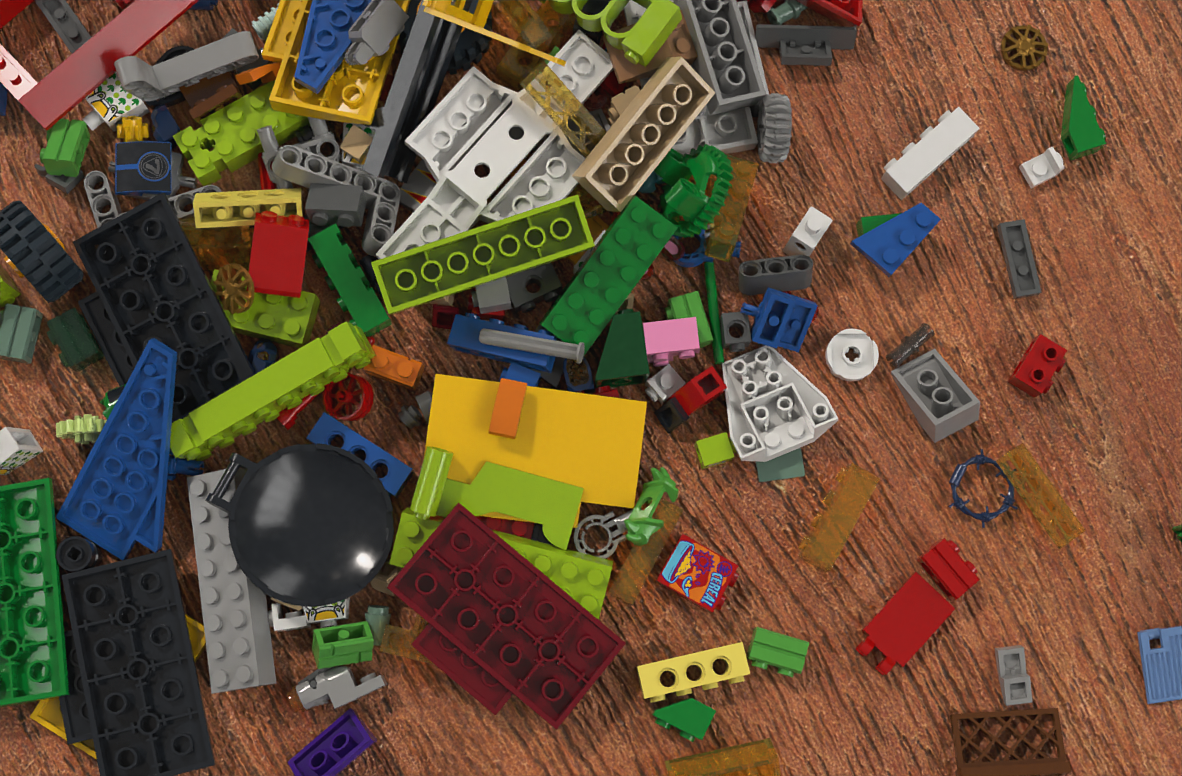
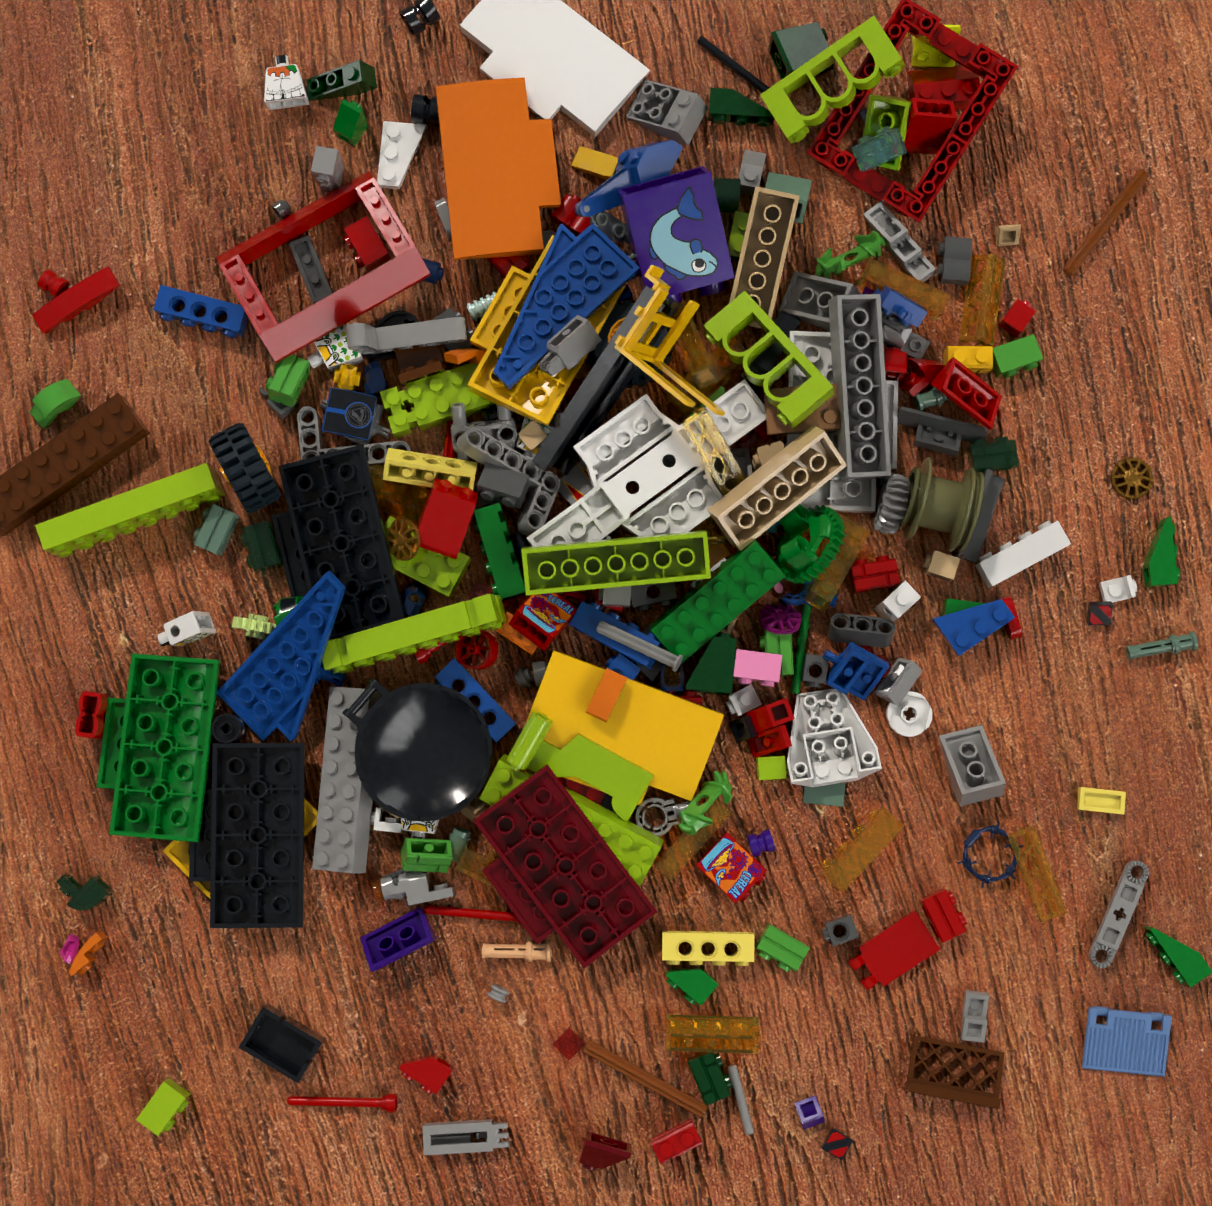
camera: 25 degrees right, 5 degrees up
(413, 700) = (471, 913): none -> red piece
(415, 341) = (543, 618): none -> brick
(488, 728) = (529, 951): none -> light nougat pin
(682, 281) = (780, 619): none -> magenta wheel
(705, 420) = (770, 741): none -> red slope
(724, 537) = (761, 843): none -> dark purple wheel
(774, 212) = (874, 575): none -> red brick
(831, 321) = (898, 681): none -> light grey slope
(832, 114) = (943, 505): none -> olive wheel
(844, 185) = (941, 565): none -> tan brick
(848, 609) = (849, 934): none -> dark grey brick
(869, 56) = (993, 455): none -> clear green brick
(872, 125) = (992, 489): none -> dark grey fence
(910, 345) = (961, 717): clear smoke pin -> none
(940, 233) = (1013, 627): none -> red beam
(1019, 259) = (1075, 665): dark grey plate -> none
(1029, 197) = (1099, 613): none -> black tile
(1038, 366) = (1066, 762): red brick -> none
(1087, 400) = (1101, 800): none -> light yellow tile
(1117, 212) = (1172, 644): none -> sand green pin
(1139, 540) = (1112, 930): none -> light grey piece

